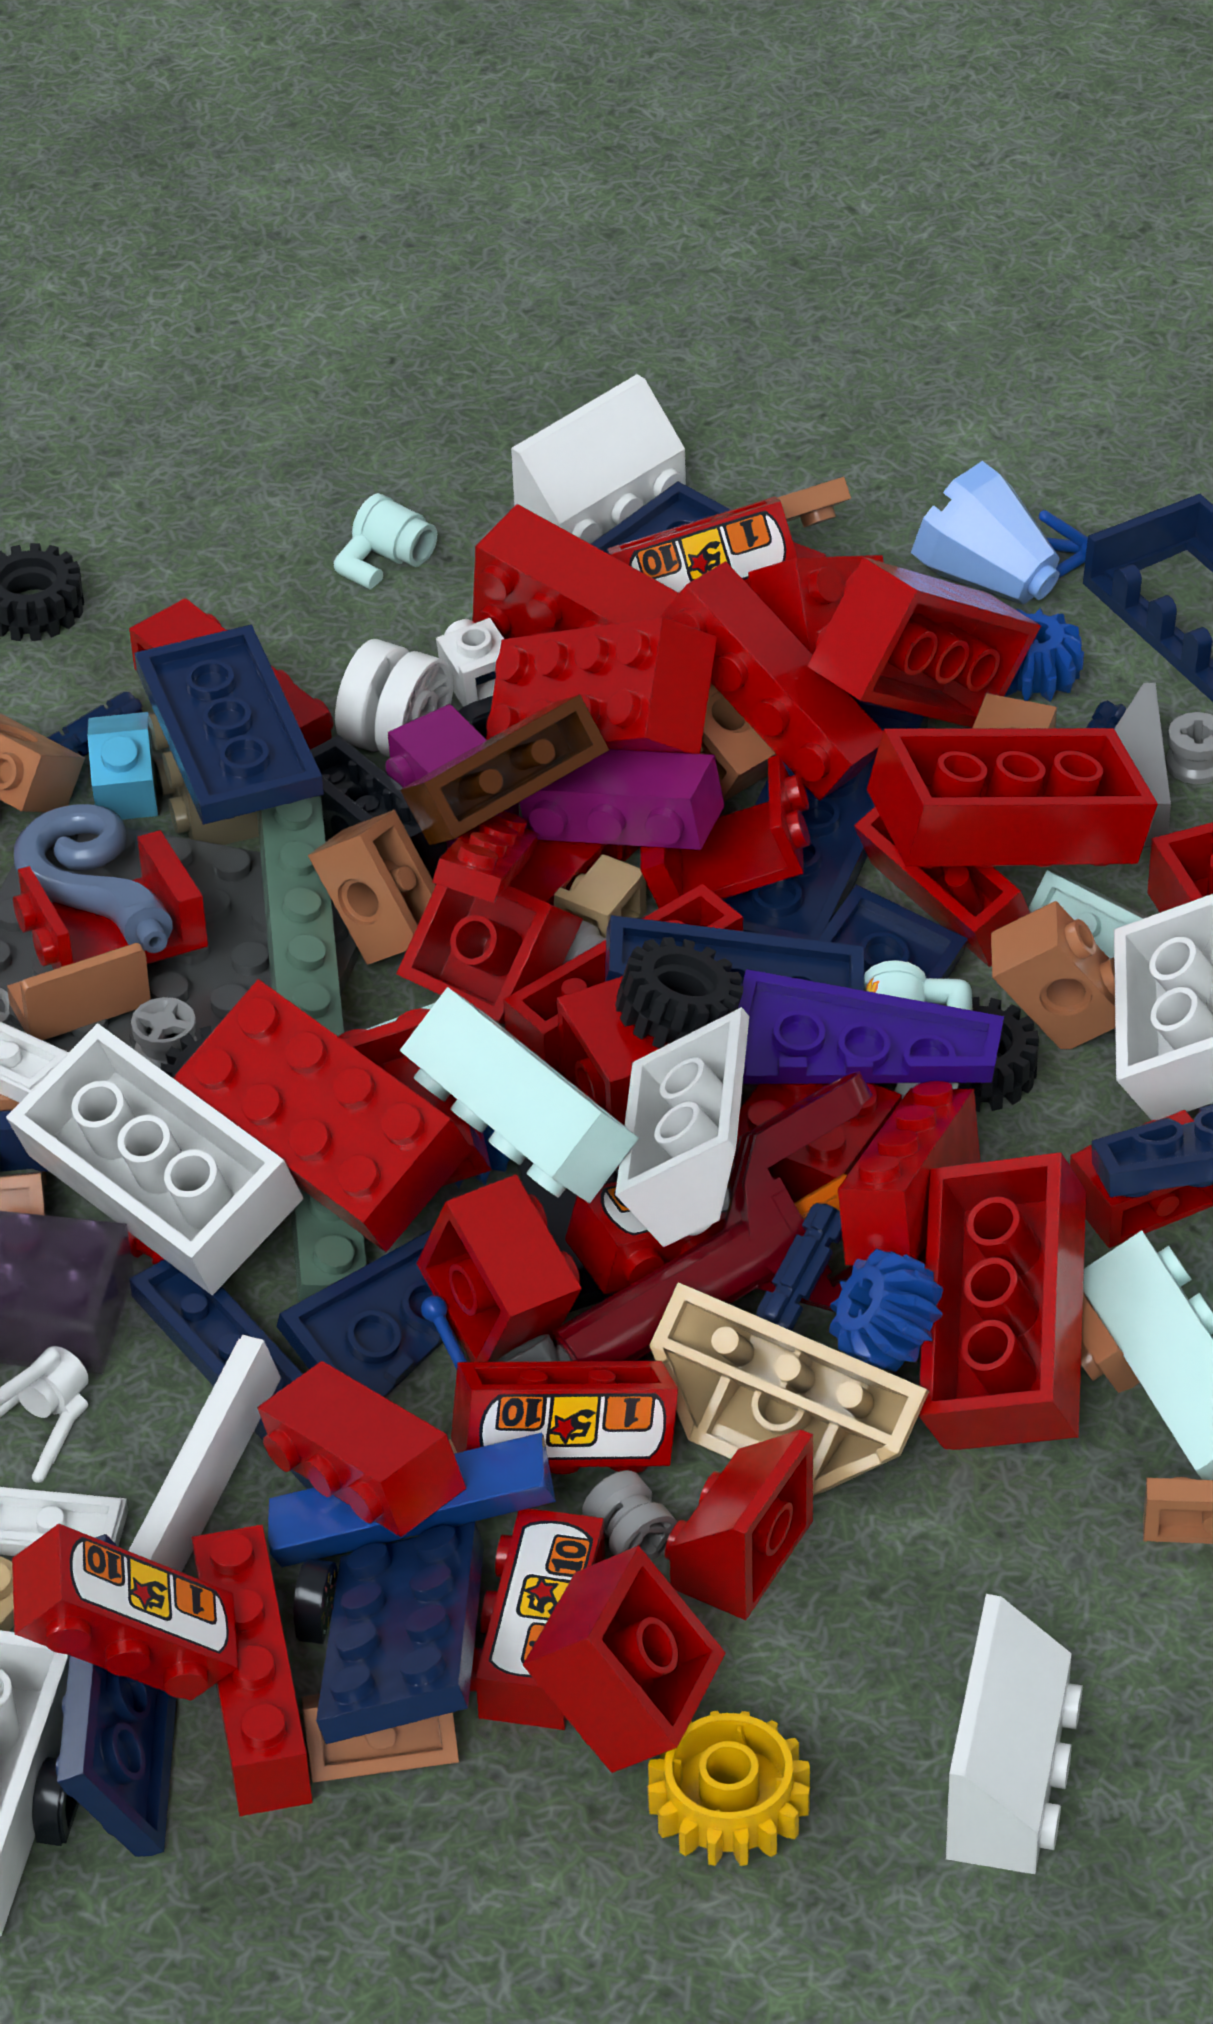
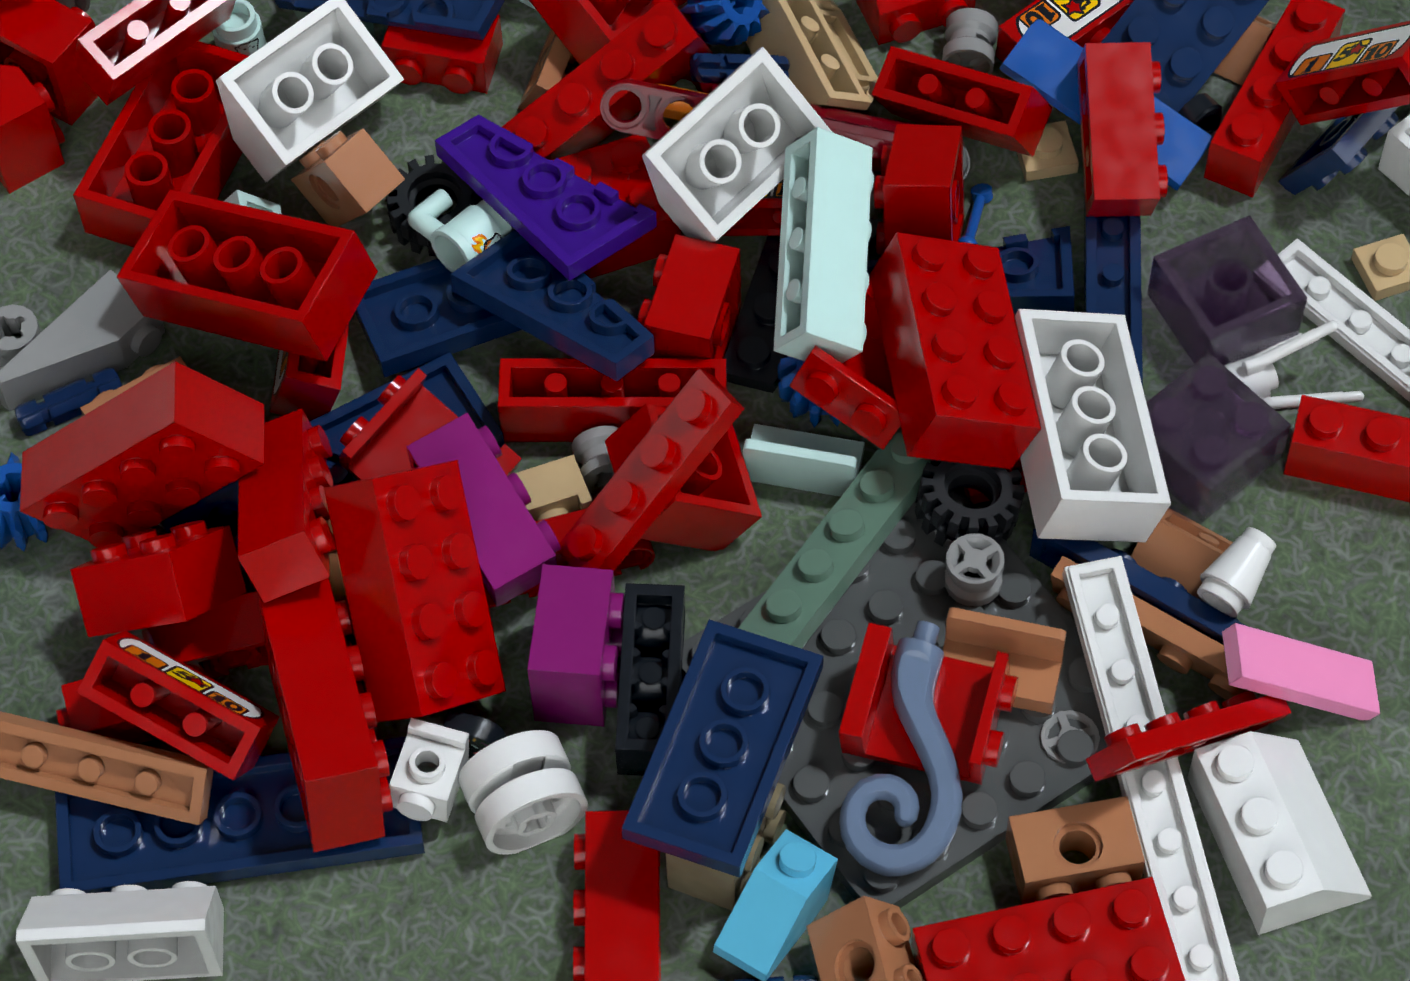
camera: 140 degrees left, 15 degrees up
(121, 1413) = (1226, 293): none -> clear purple brick
(208, 1456) = (1264, 203): white tile -> none
(375, 884) = (716, 578): nougat brick -> none
(504, 770) = (575, 522): reddish brown brick -> none
(675, 990) = (650, 282): black tyre -> none

